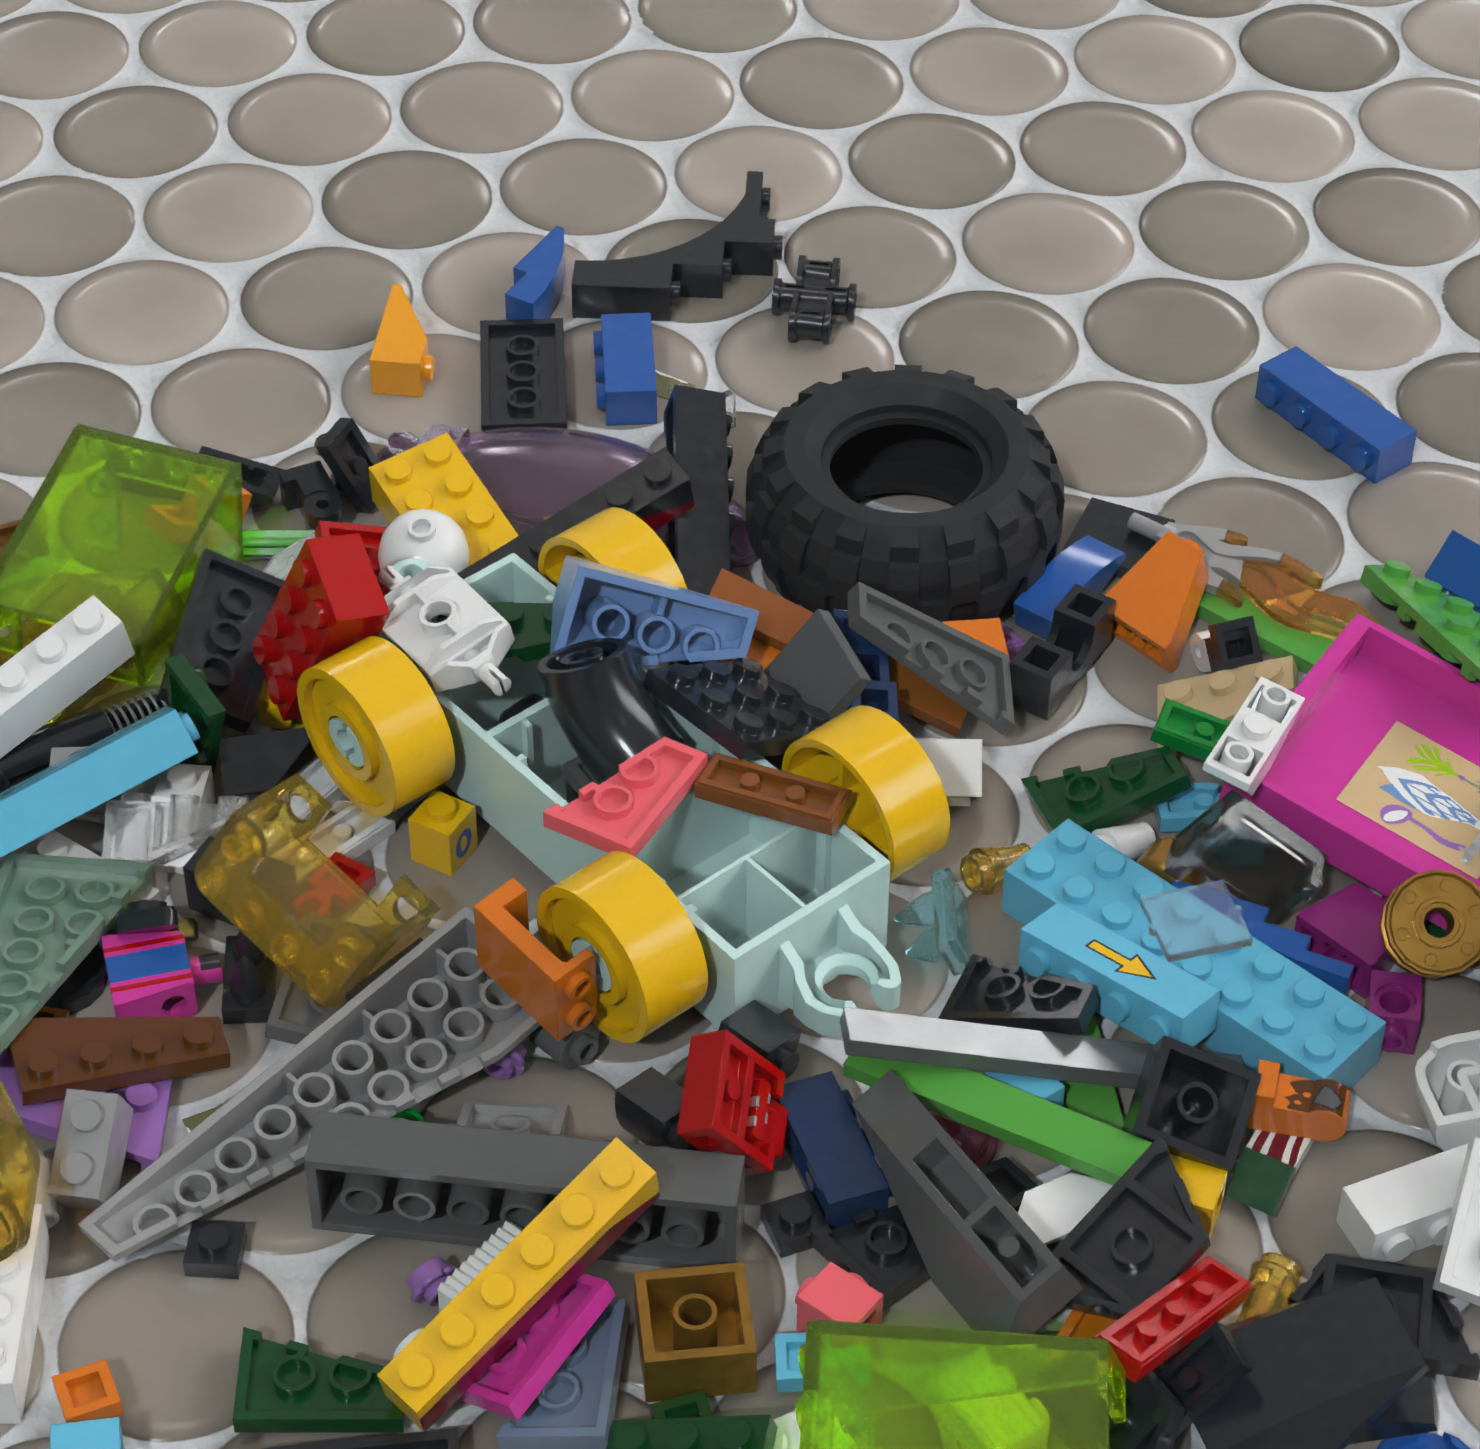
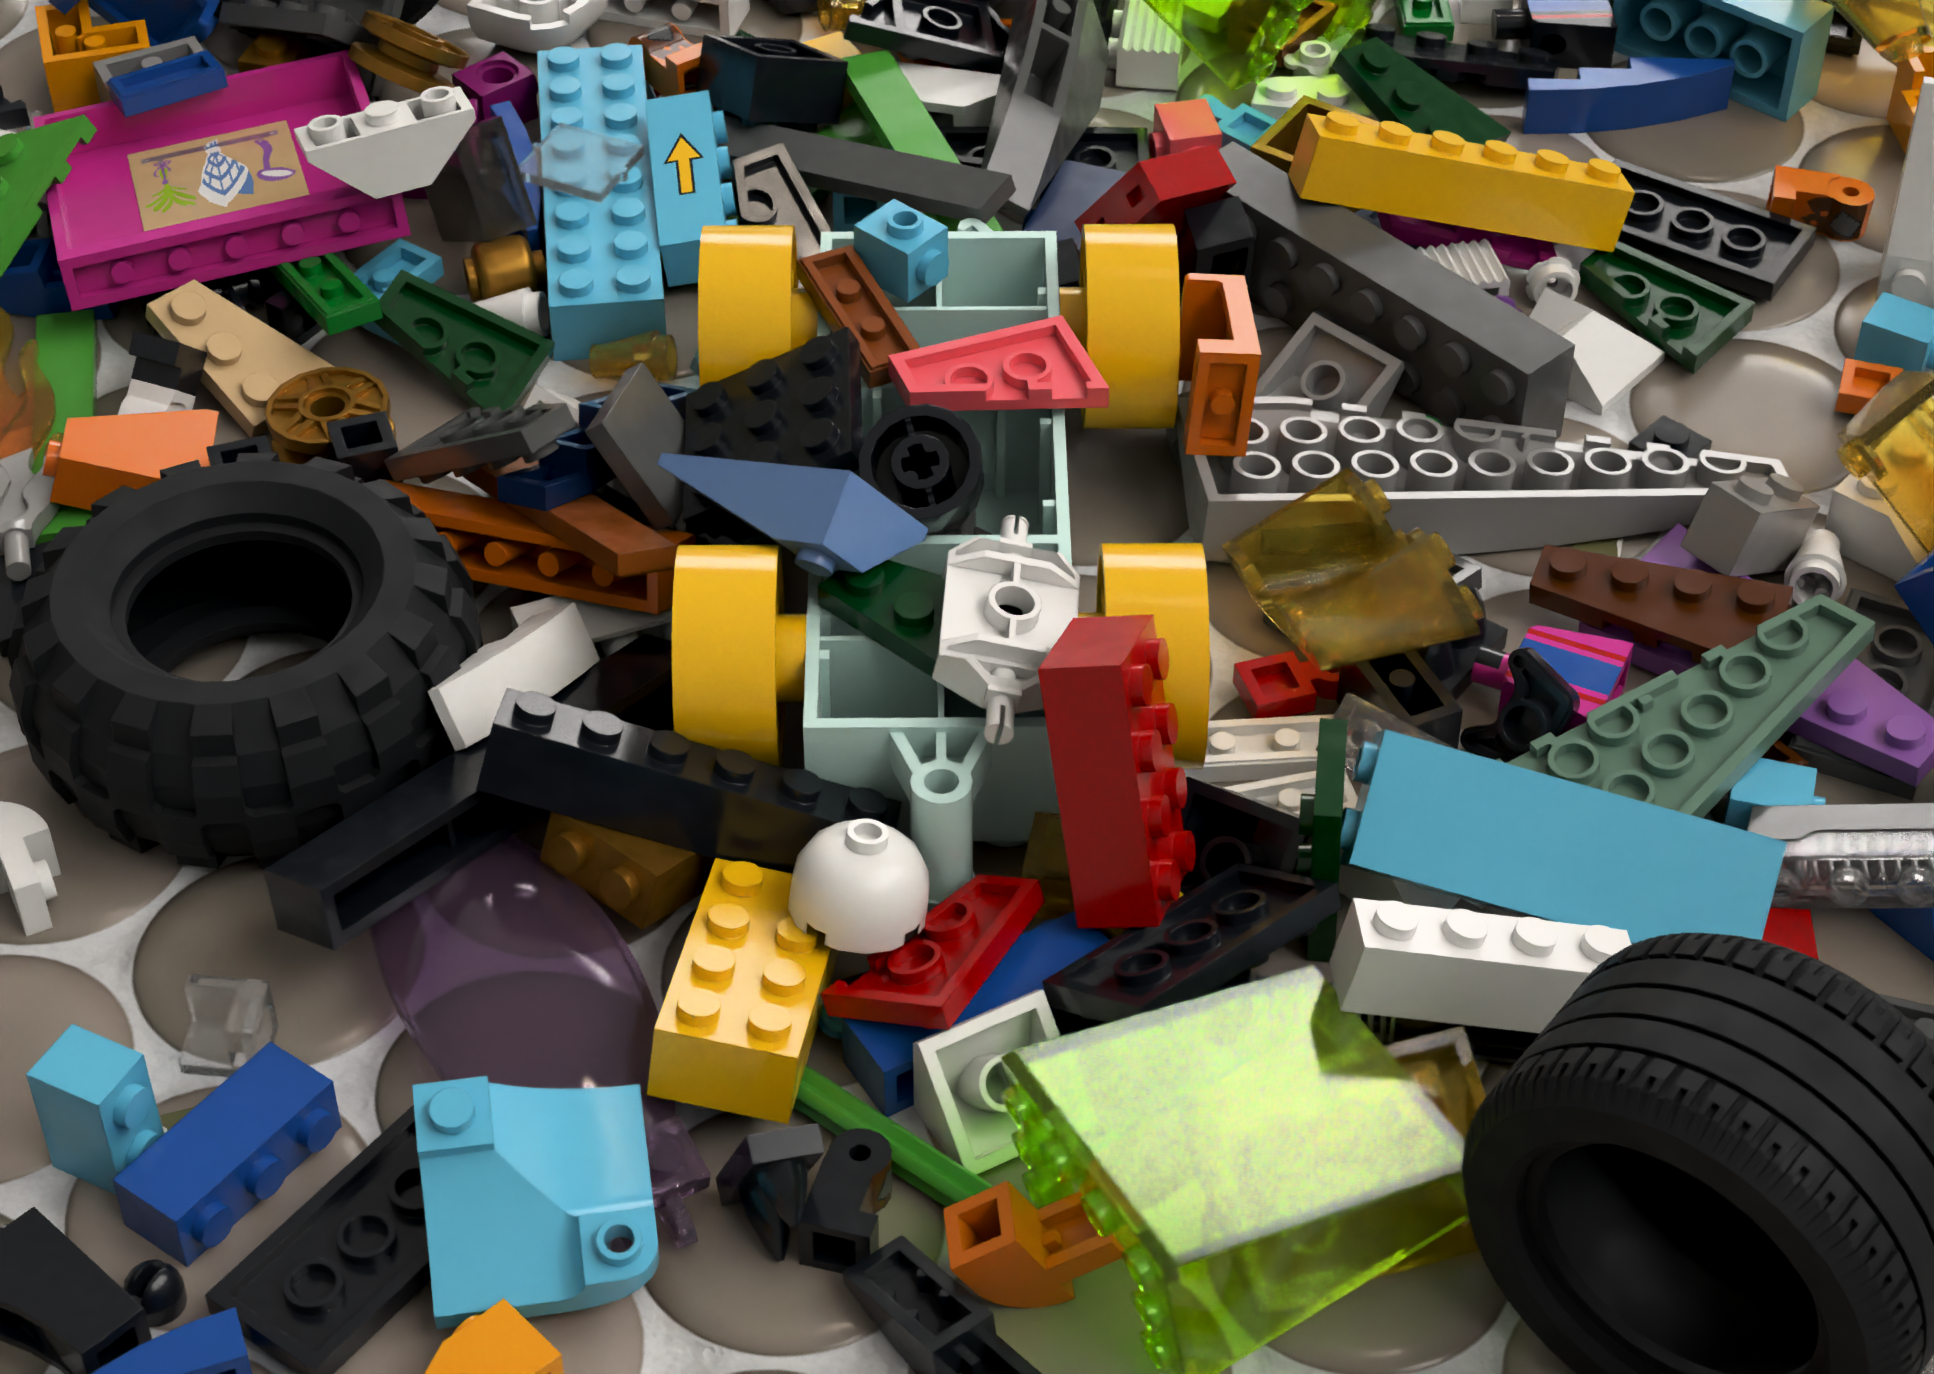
camera: 140 degrees left, 0 degrees up
(346, 1300) = (1606, 355): none -> white slope
(451, 396) = (531, 1195): none -> medium azure slope
(589, 319) = (164, 1292): none -> black hinge
(693, 329) = (94, 1105): none -> medium azure brick
(748, 547) = (536, 657): none -> white slope
(794, 842) = (903, 249): none -> medium azure brick
(1109, 706) = (309, 400): none -> pearl gold wheel

